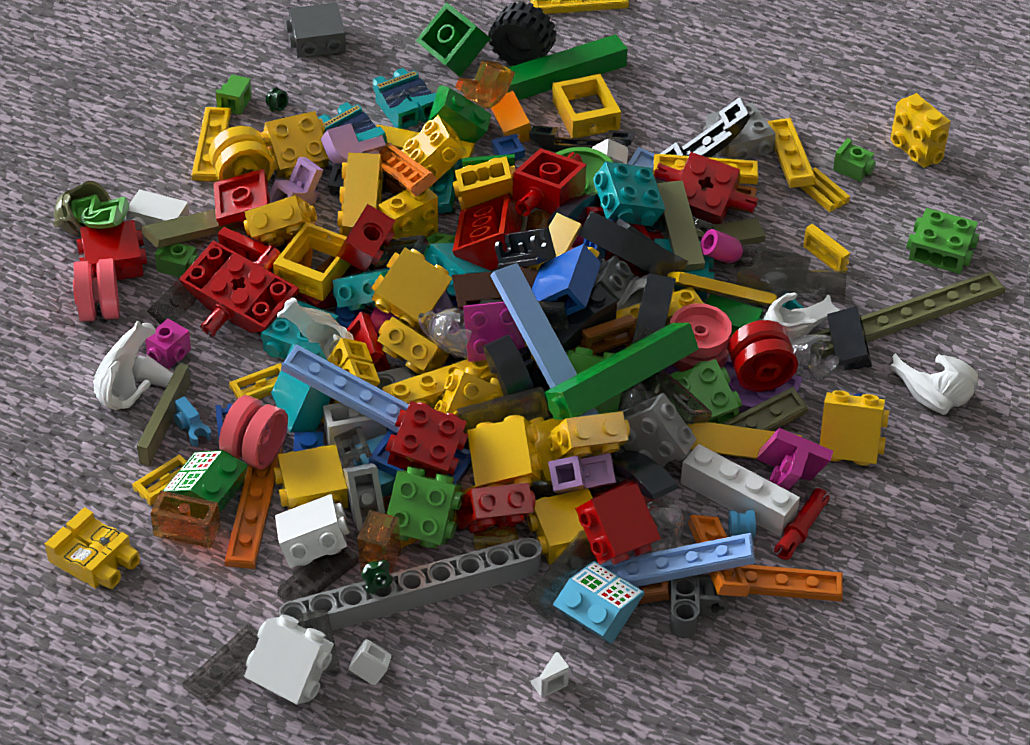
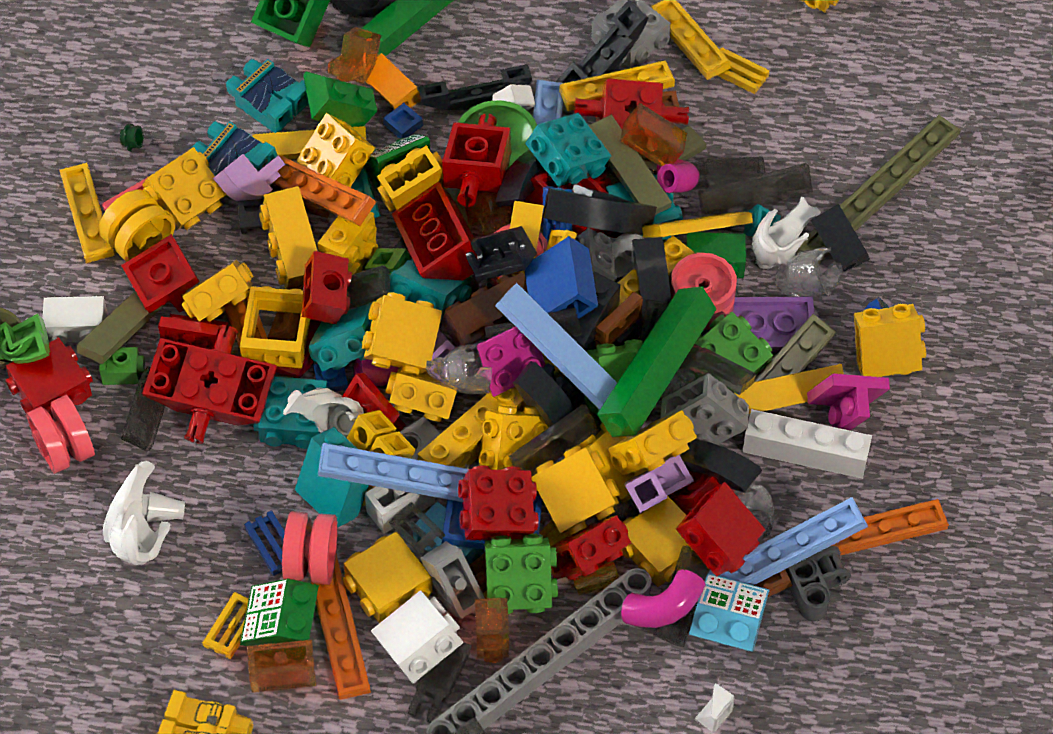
camera: 20 degrees left, 10 degrees up
(163, 414) = (197, 552): olive tile -> none
(168, 343) = (168, 470): dark pink brick -> none
(189, 419) = (224, 549): dark azure plate -> none
(234, 94) = (84, 145): bright green brick -> none
(262, 387) = (260, 500): yellow tile -> none
(301, 183) = (211, 243): lavender brick -> none
(307, 440) = (358, 535): blue plate -> none
(316, 30) = (135, 39): dark grey brick -> none
(376, 576) = (509, 666): dark green plate -> none
(541, 572) = (665, 607): none -> dark pink cylinder
(581, 124) = (474, 64): yellow window -> none
(711, 206) = (653, 136): none -> clear orange brick
(726, 581) = (802, 506): orange tile -> none
(741, 523) = (824, 480): dark azure wheel -> none
(762, 356) = (774, 291): red wheel -> none
(798, 529) = (877, 469): red pin -> none
(826, 248) = (773, 141): yellow tile -> none
(853, 161) = (757, 28): bright green brick -> none
(942, 389) = (948, 270): white hair -> none
(943, 240) = (881, 95): bright green brick -> none

